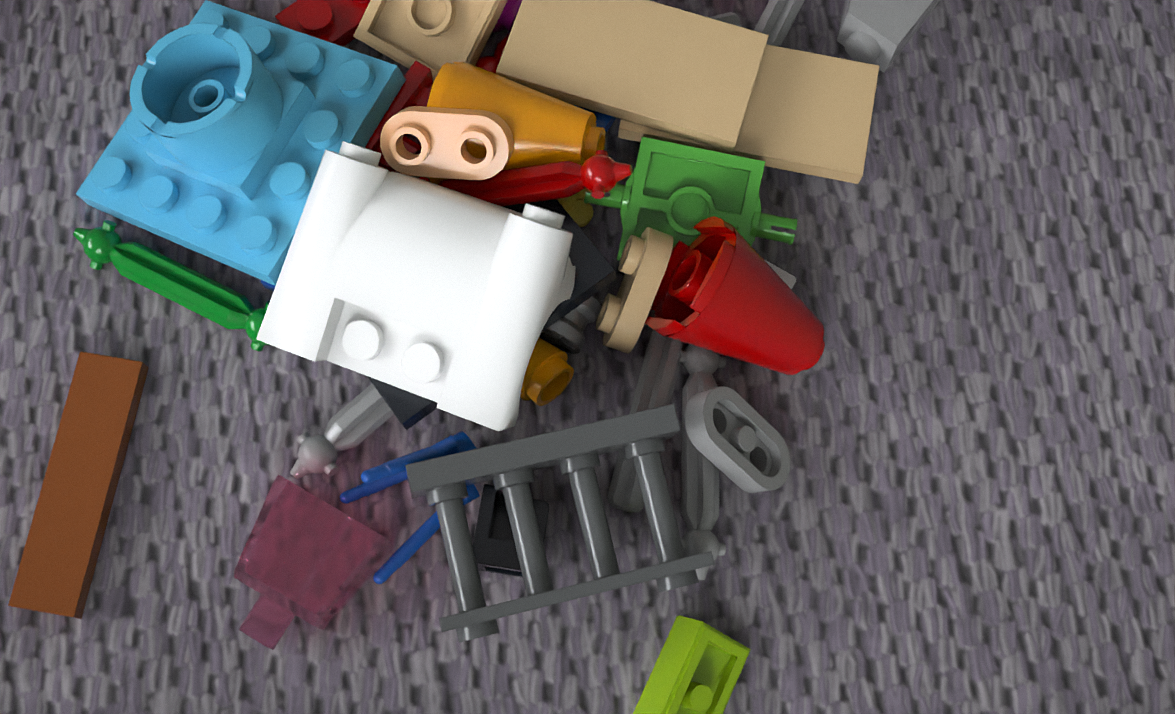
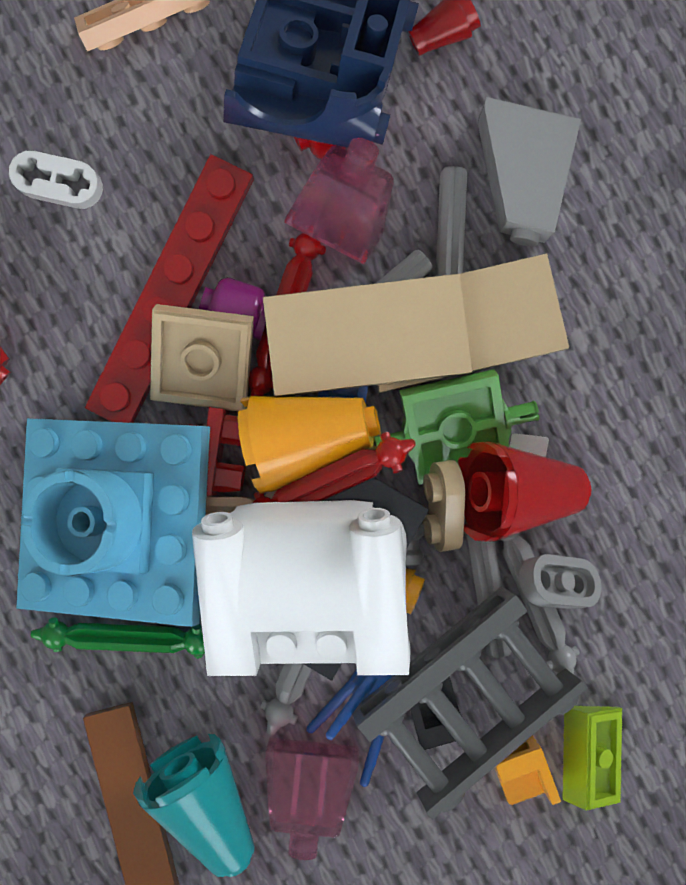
camera: 20 degrees left, 15 degrees up
(163, 518) = (199, 804): none -> teal cone
(443, 142) = (269, 478): light nougat plate -> none
(586, 668) = (526, 774): none -> light orange panel

